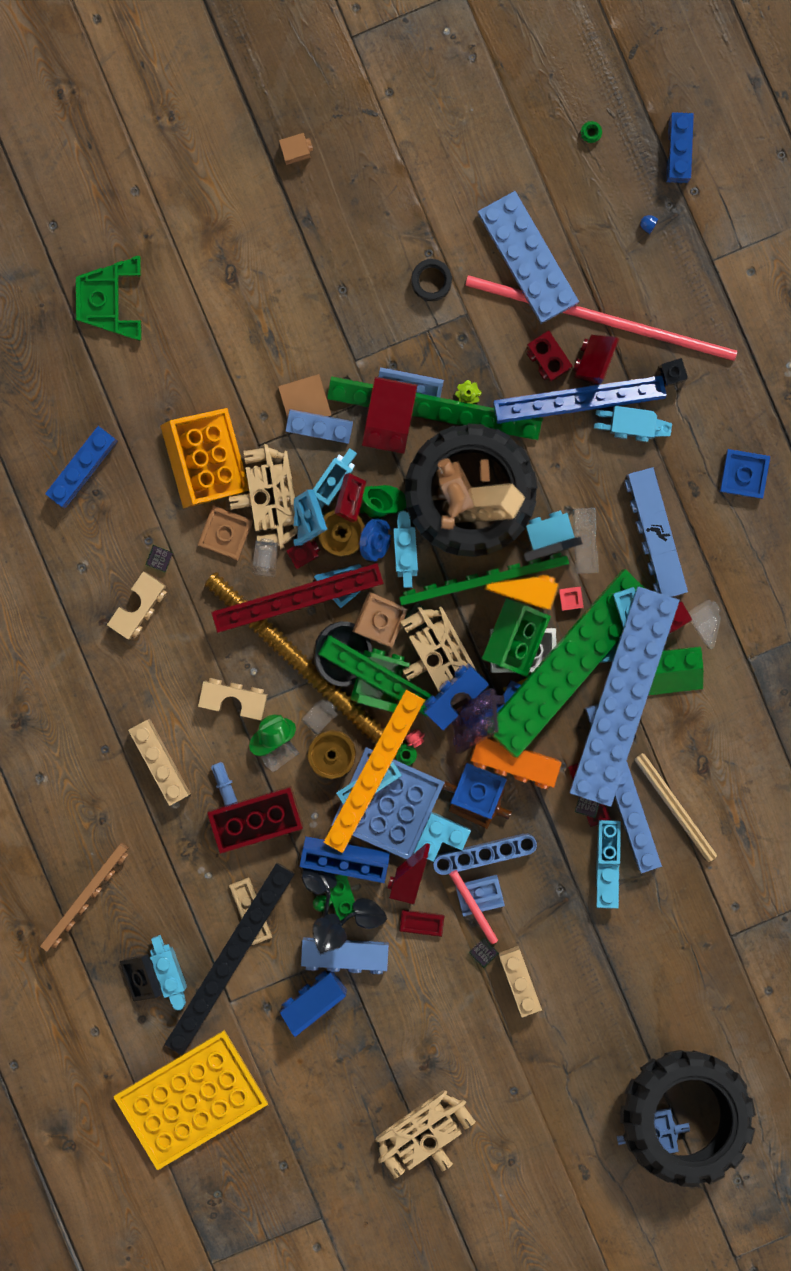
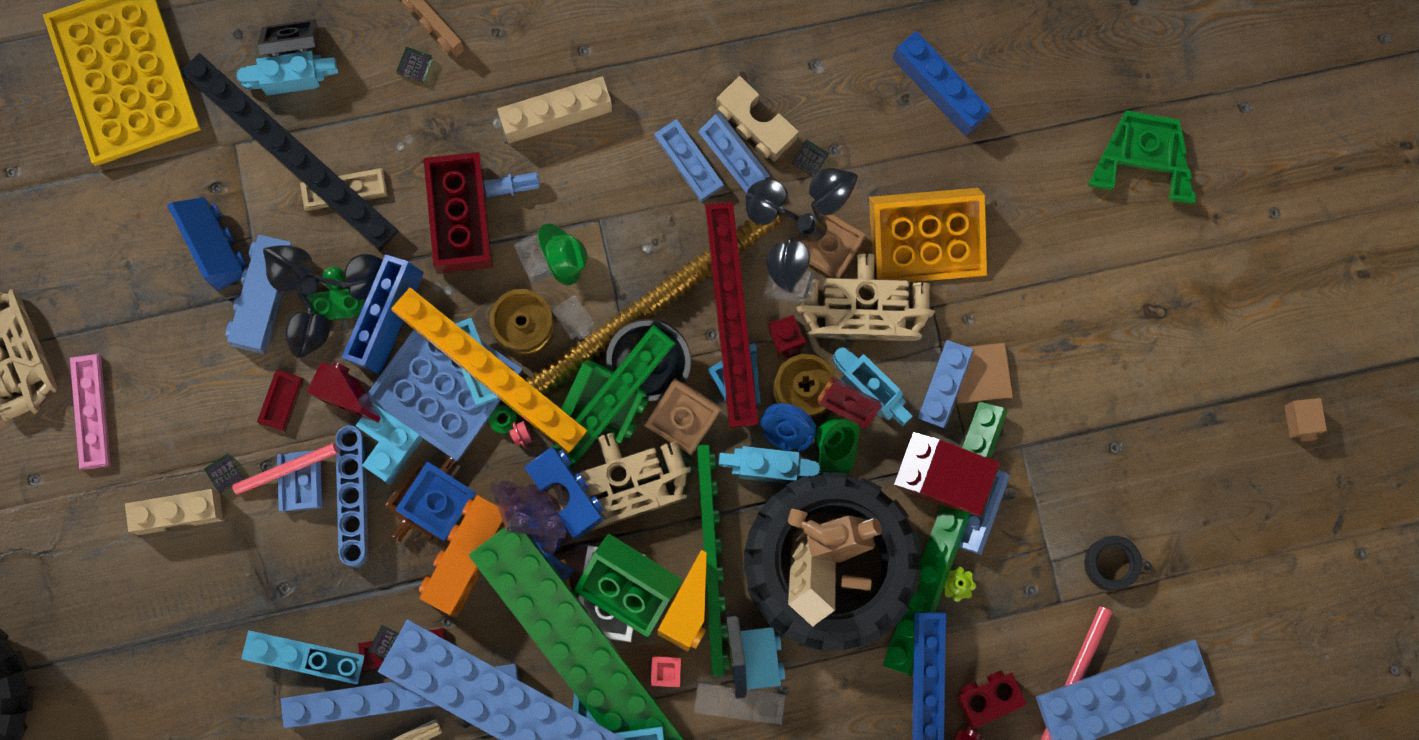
camera: 95 degrees right, 10 degrees down
(141, 878) = (414, 64): none -> tile
(168, 618) = (733, 152): none -> medium blue plate
(179, 652) = (688, 160): none -> medium blue plate
(203, 587) = (765, 199): none -> black plant
(252, 701) = (608, 237): tan arch -> none
(308, 517) = (832, 344): dark azure wing -> none
(456, 1061) = (90, 412): none -> bright pink tile

